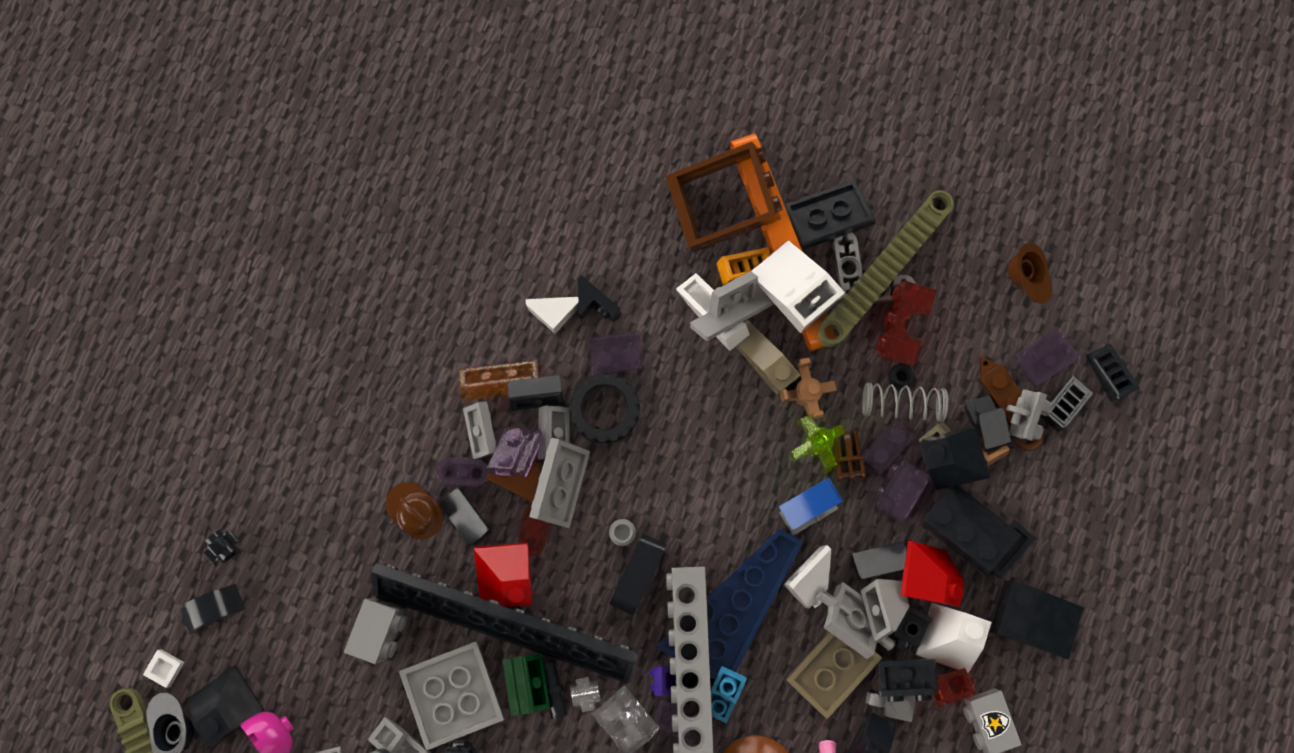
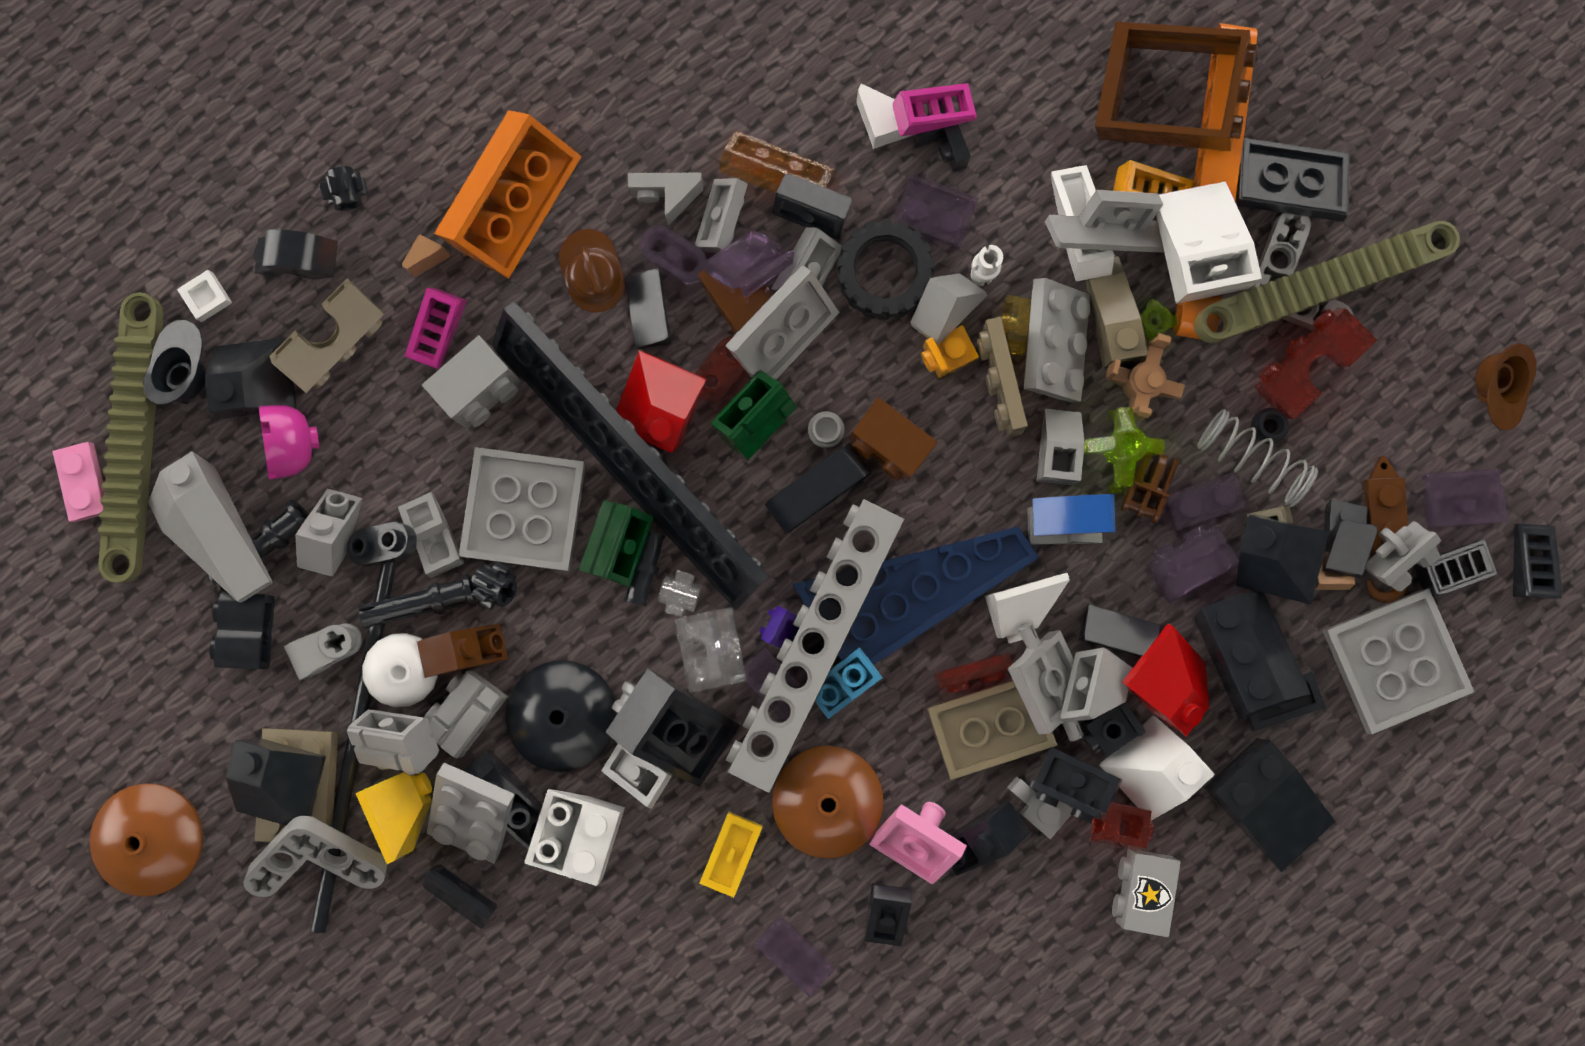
camera: 30 degrees right, 5 degrees up
(259, 675) = (310, 362): none -> dark tan arch
(298, 562) = (423, 256): none -> medium nougat slope
(318, 594) = (422, 322): none -> dark pink slope
(333, 491) = (508, 193): none -> orange slope
(442, 428) = (677, 189): none -> light grey slope
(566, 291) = (911, 114): none -> dark pink slope
(571, 549) = (753, 415): none -> dark green brick
(655, 411) = (945, 305): none -> light grey slope
(668, 379) = (986, 265): none -> white pin
(669, 518) = (891, 441): none -> reddish brown brick
(674, 439) = (950, 354): none -> light orange bracket
(709, 397) = (1016, 322): none -> clear yellow brick
(716, 440) = (1001, 378): none -> dark tan plate
(738, 396) = (1057, 340): none -> light grey plate
(778, 462) = (1061, 447): none -> light grey slope
(795, 648) = (988, 668): none -> clear red plate
(798, 344) = (1164, 319): none -> clear neon green plate
(1063, 483) = (1398, 661): none -> light grey plate

